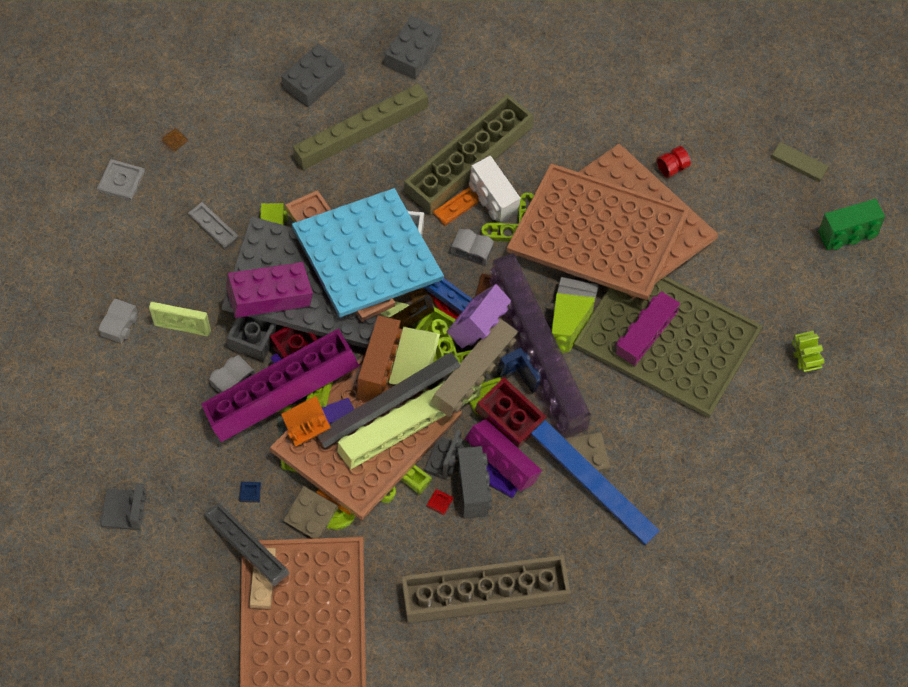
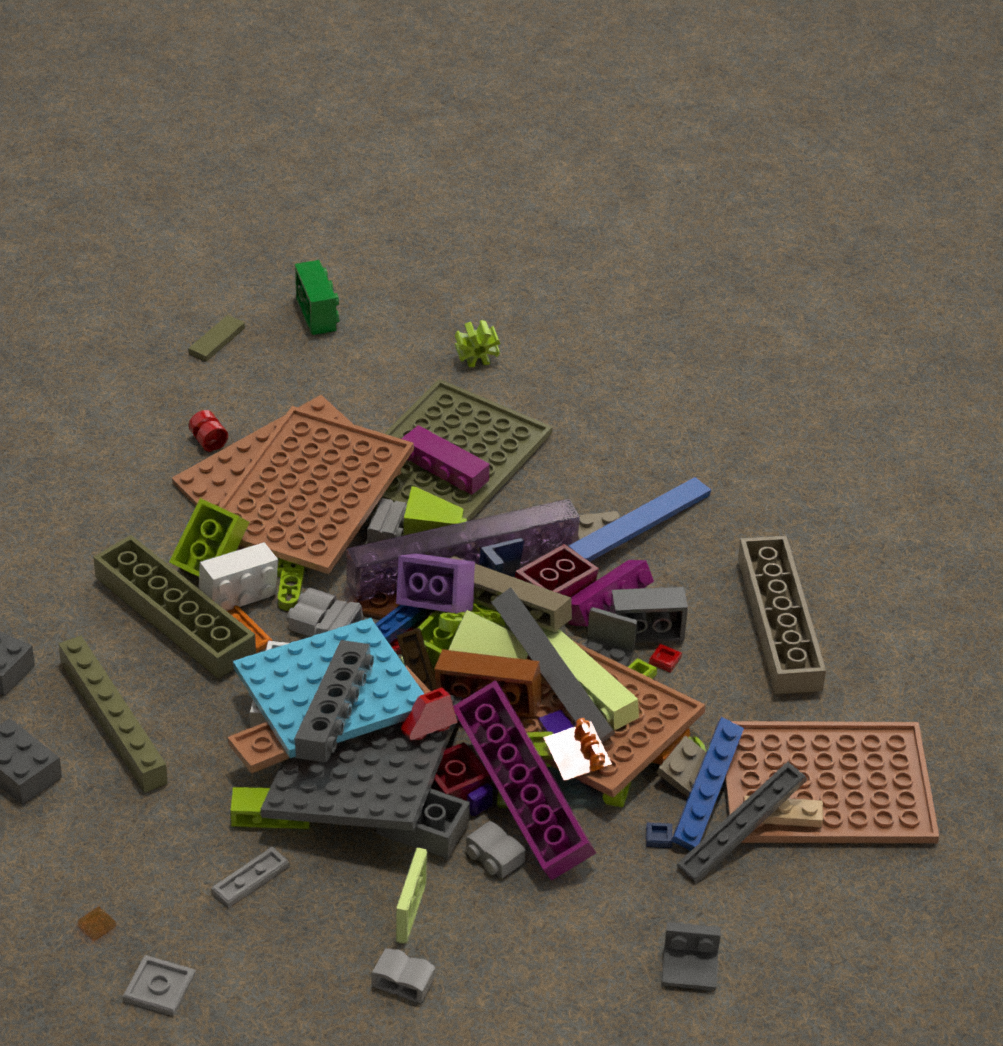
camera: 90 degrees left, 20 degrees down
(269, 289) = (395, 769): magenta brick -> none
(292, 523) = (707, 784): none -> blue plate
(329, 314) = (429, 714): none -> red slope
(341, 242) = (333, 701): none -> dark grey brick
(456, 264) = (340, 615): none -> light grey brick
(530, 165) = (208, 535): none -> lime brick

